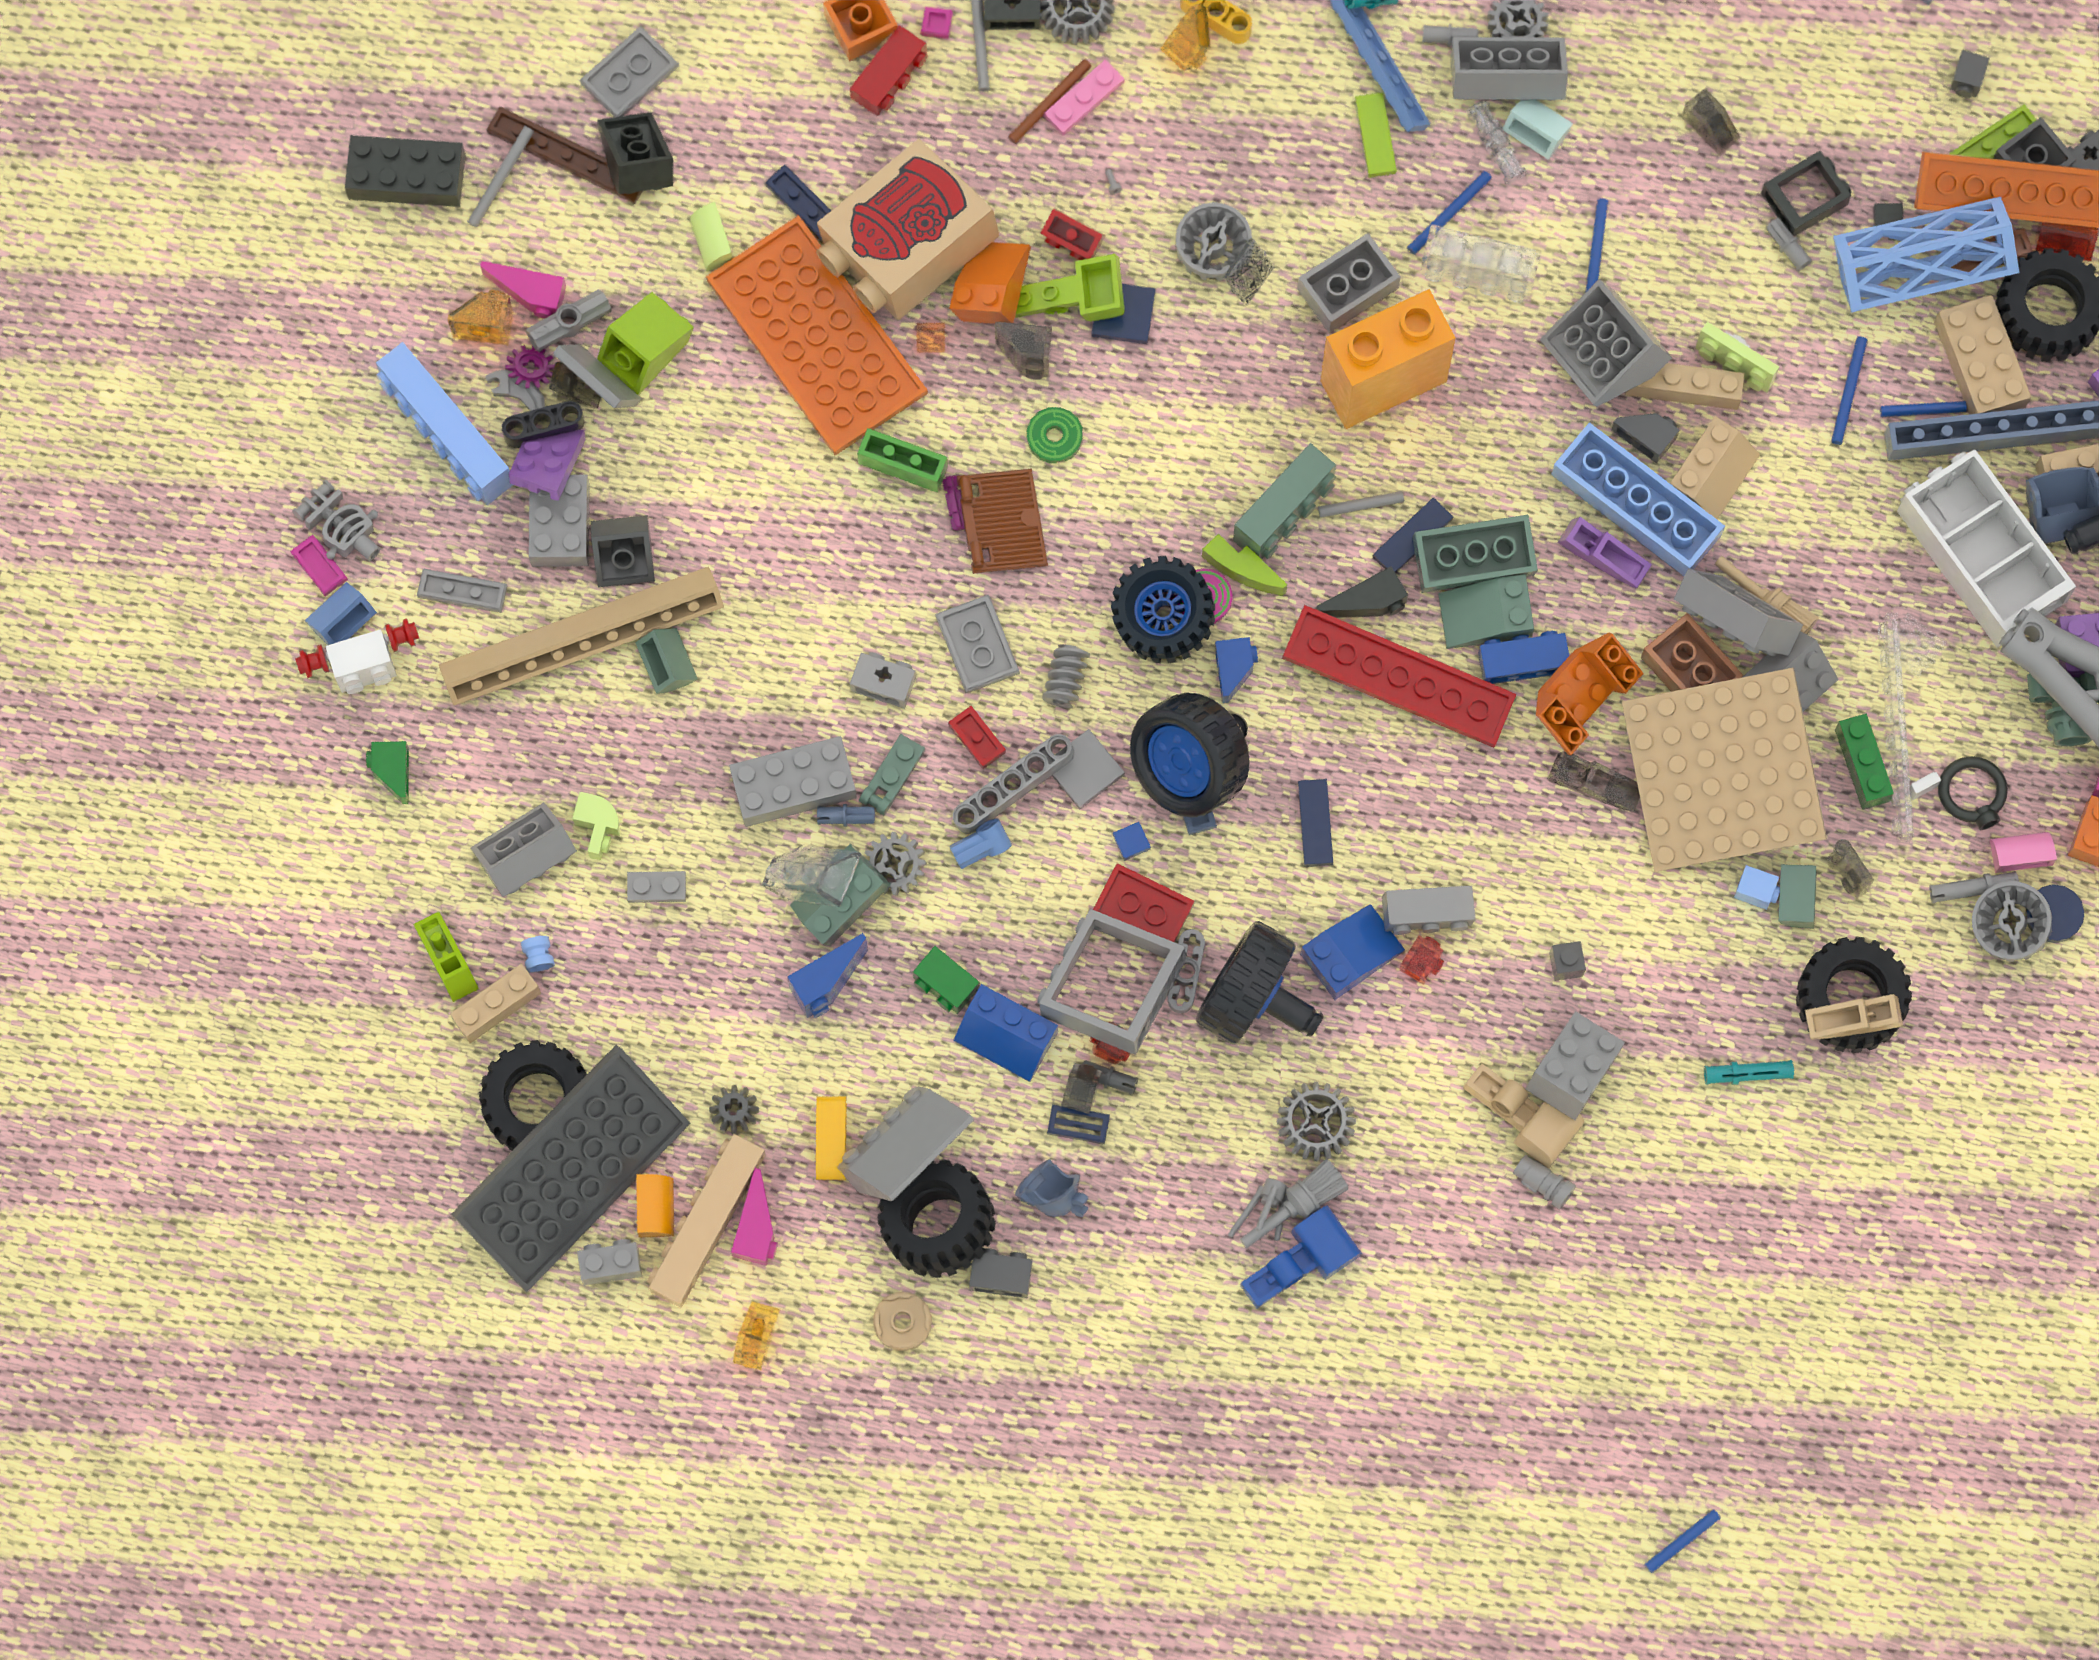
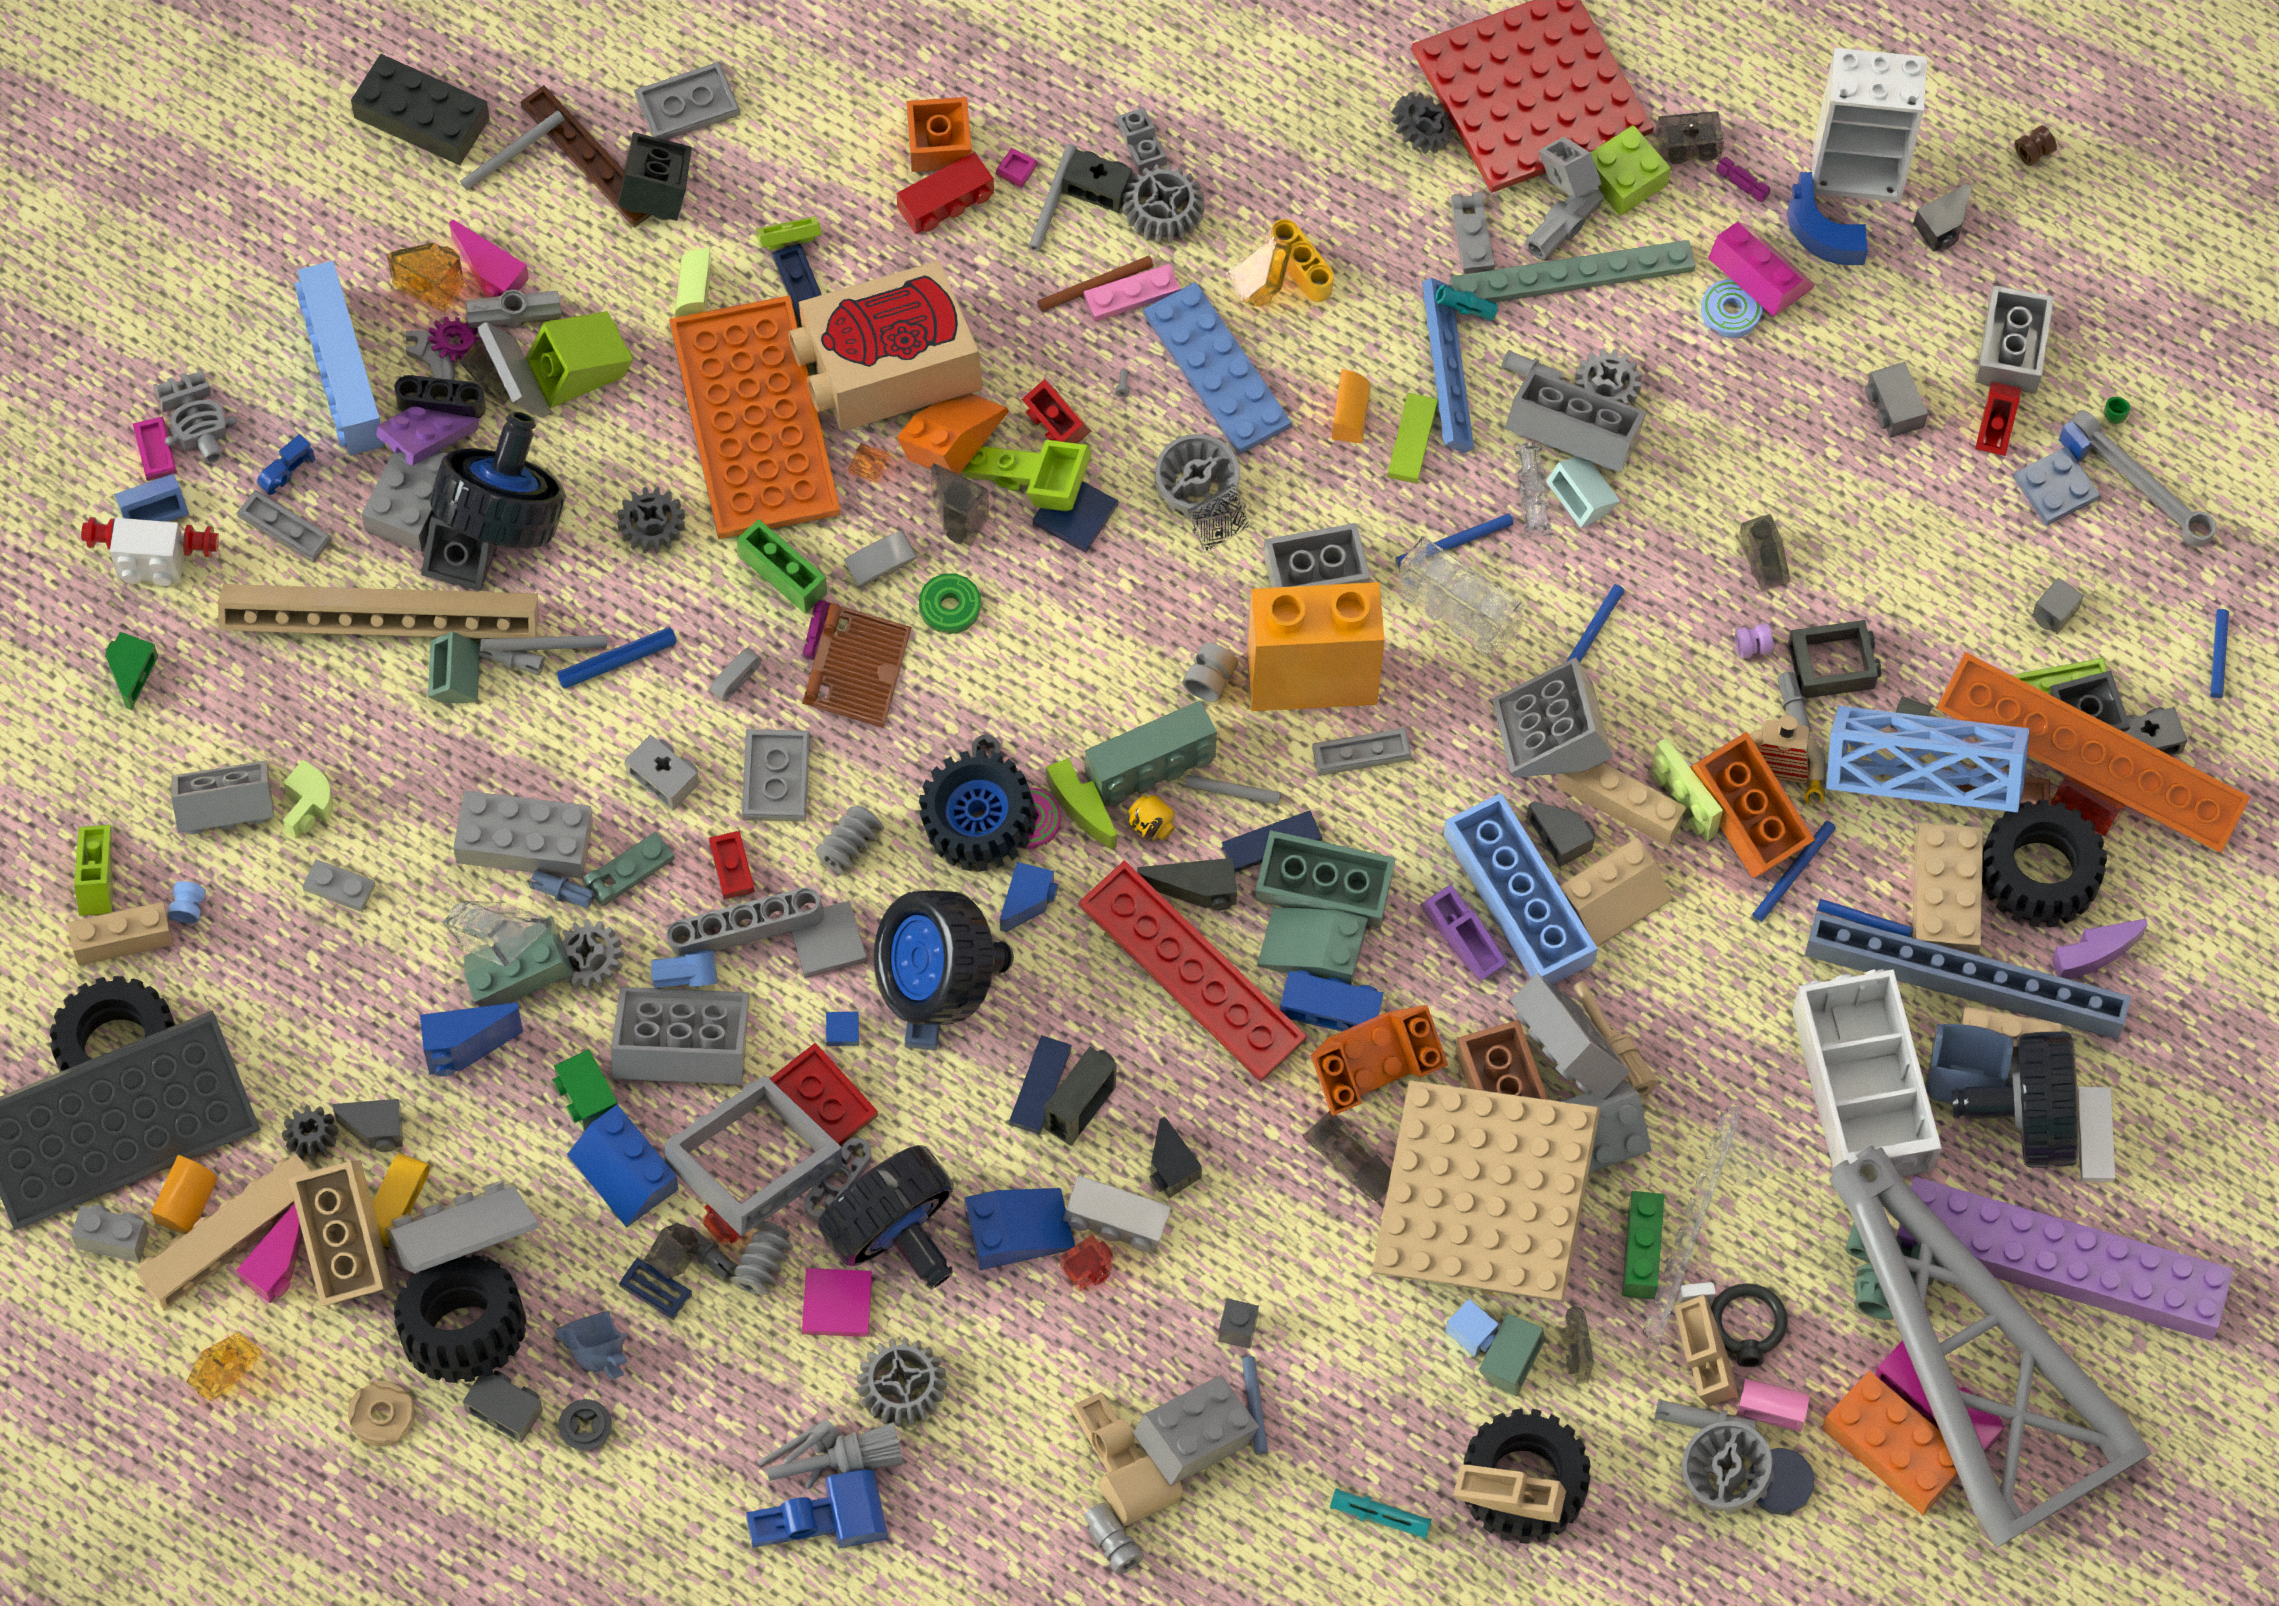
camera: 20 degrees right, 10 degrees down
(438, 543) = (280, 470): none -> blue piece
(639, 492) = (499, 492): none -> black wheel
(709, 629) = (519, 659): none -> light grey pin
(733, 607) = (544, 643): none -> light grey piece
(762, 458) = (651, 532): none -> dark grey gear
(771, 157) = (799, 230): none -> lime plate
(783, 1080) = (373, 1122): none -> dark grey slope
(797, 594) = (616, 657): none -> blue axle
(805, 1187) = (340, 1233): none -> tan brick
(905, 570) = (735, 674): none -> light grey beam
(980, 419) = (880, 557): none -> light grey slope
(1002, 901) = (680, 1035): none -> light grey slope
(1068, 1250) = (585, 1410): none -> dark grey gear
(1141, 543) = (989, 741): none -> dark grey bush
(1156, 1065) = (761, 1258): none -> light grey piece
(1185, 137) = (1217, 368): none -> medium blue plate
(1232, 1075) = (837, 1302): none -> dark pink tile
(1299, 413) = (1208, 674): none -> light grey wheel
(1307, 557) = (1151, 818): none -> yellow head
(1313, 129) = (1351, 407): none -> light orange brick
(1357, 820) = (1080, 1095): none -> pearl dark grey window
(1452, 428) = (1361, 751): none -> light grey tile
(1452, 845) = (1172, 1161): none -> black slope
(1606, 1020) = (1254, 1403): none -> sand blue bar
(1734, 203) = (1754, 641): none -> lavender wheel
(1799, 294) = (1792, 753): none -> tan torso
(1807, 356) = (1755, 807): none -> orange brick
(1951, 830) = (1705, 1351): none -> tan slope

